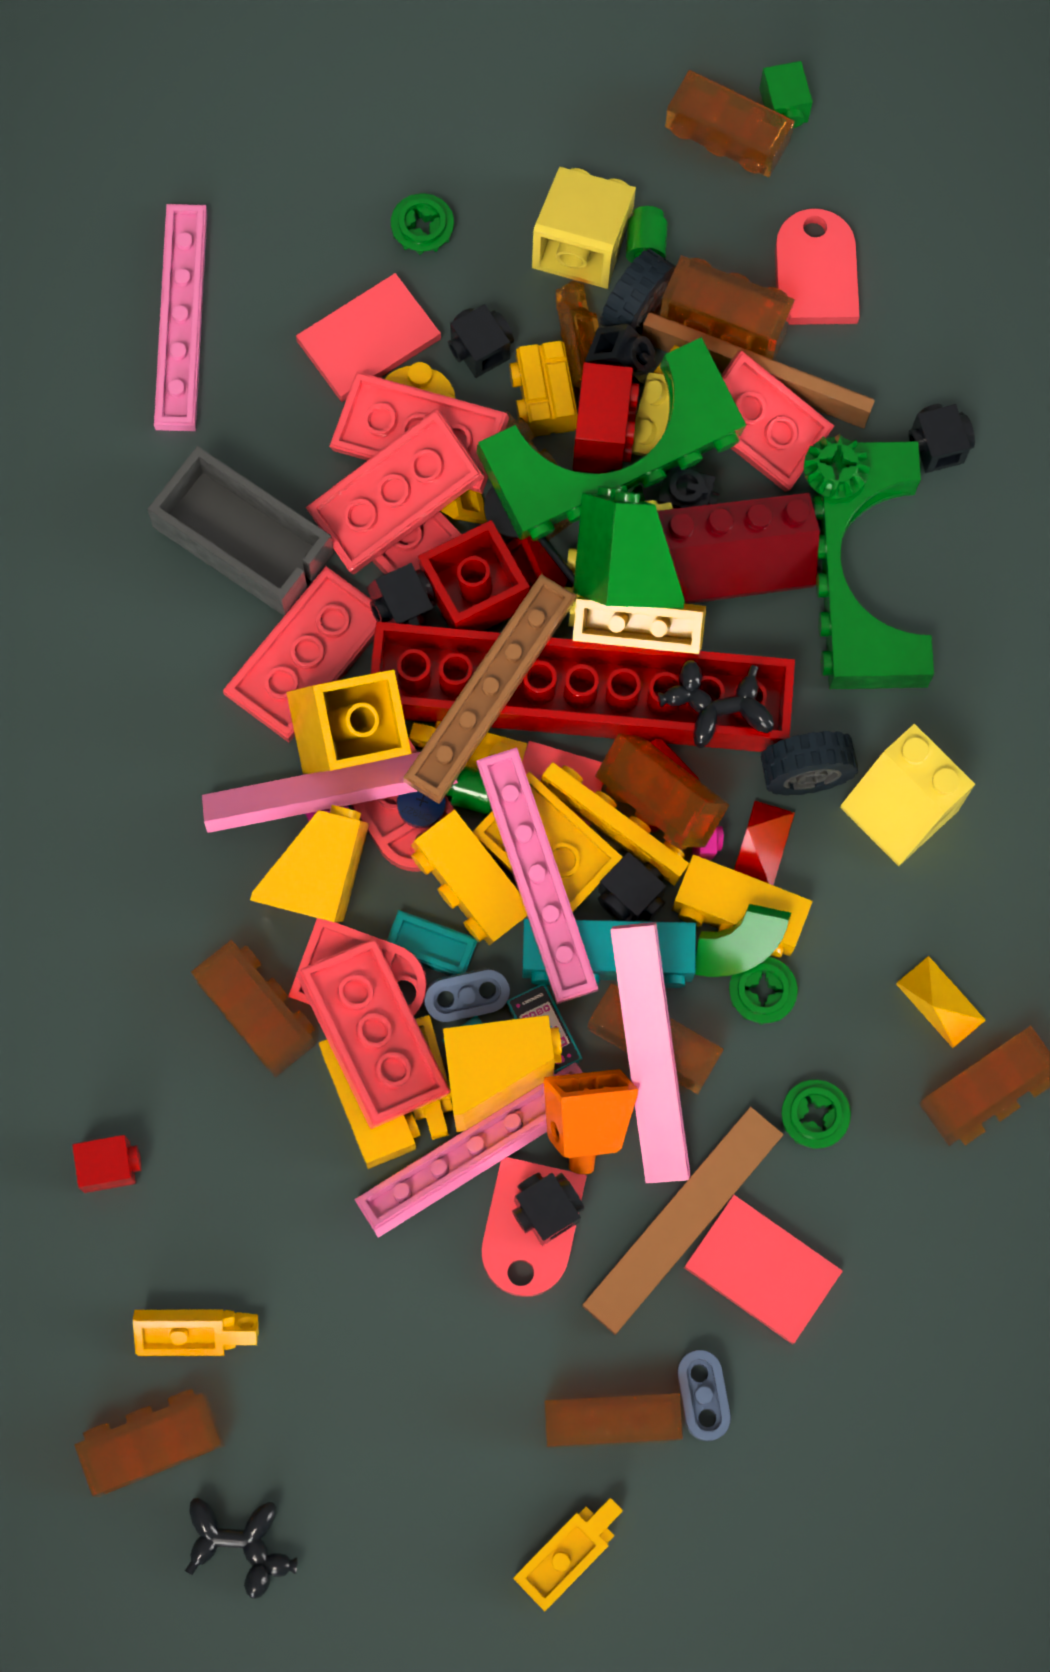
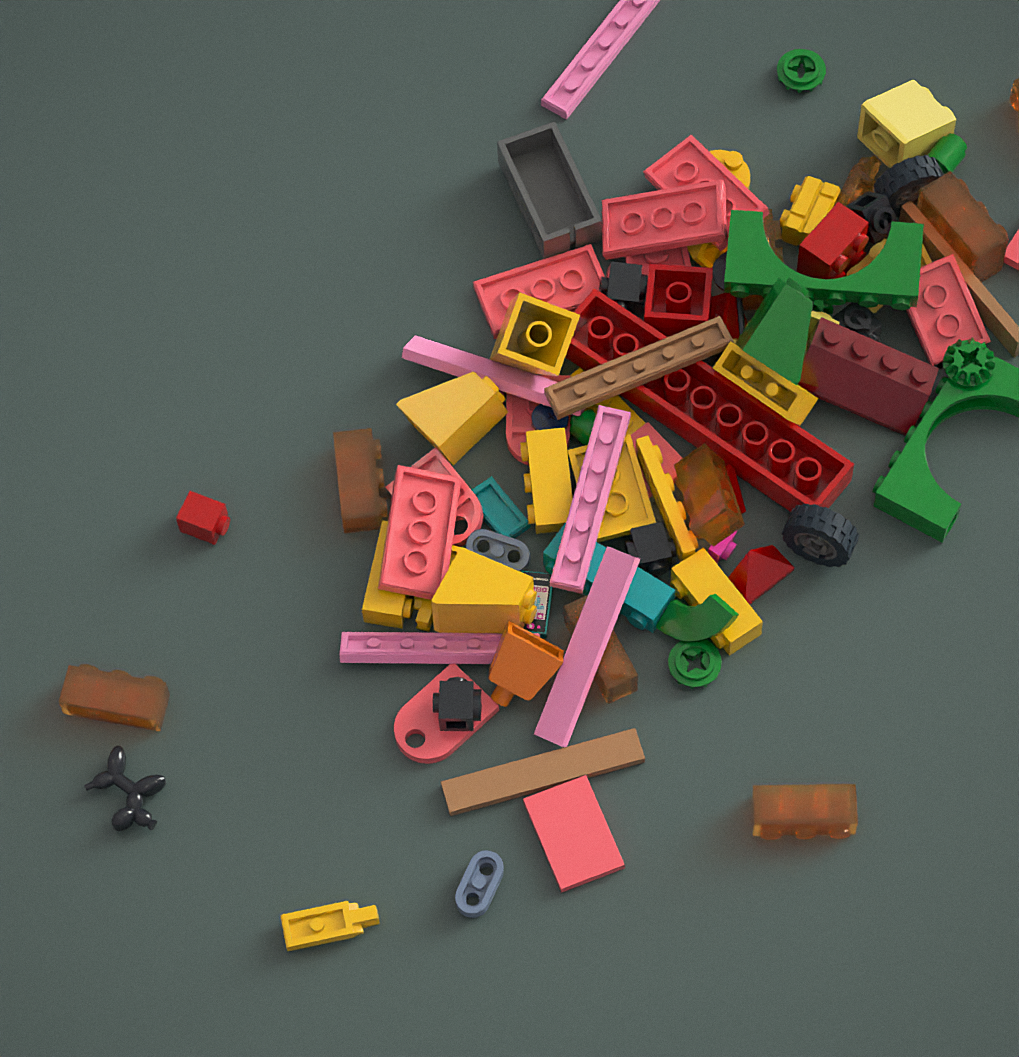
camera: 40 degrees right, 10 degrees down
(192, 1332) = (186, 648): yellow hinge -> none
(368, 335) = (719, 119): coral tile -> none
(480, 339) = (788, 160): black brick -> none
(612, 1420) = (409, 860): clear orange brick -> none
(709, 709) = (772, 459): black piece -> none
(820, 1094) = (688, 751): green gear -> none
(907, 795) = (873, 593): light yellow slope -> none
(940, 1002) = (810, 742): yellow slope -> none

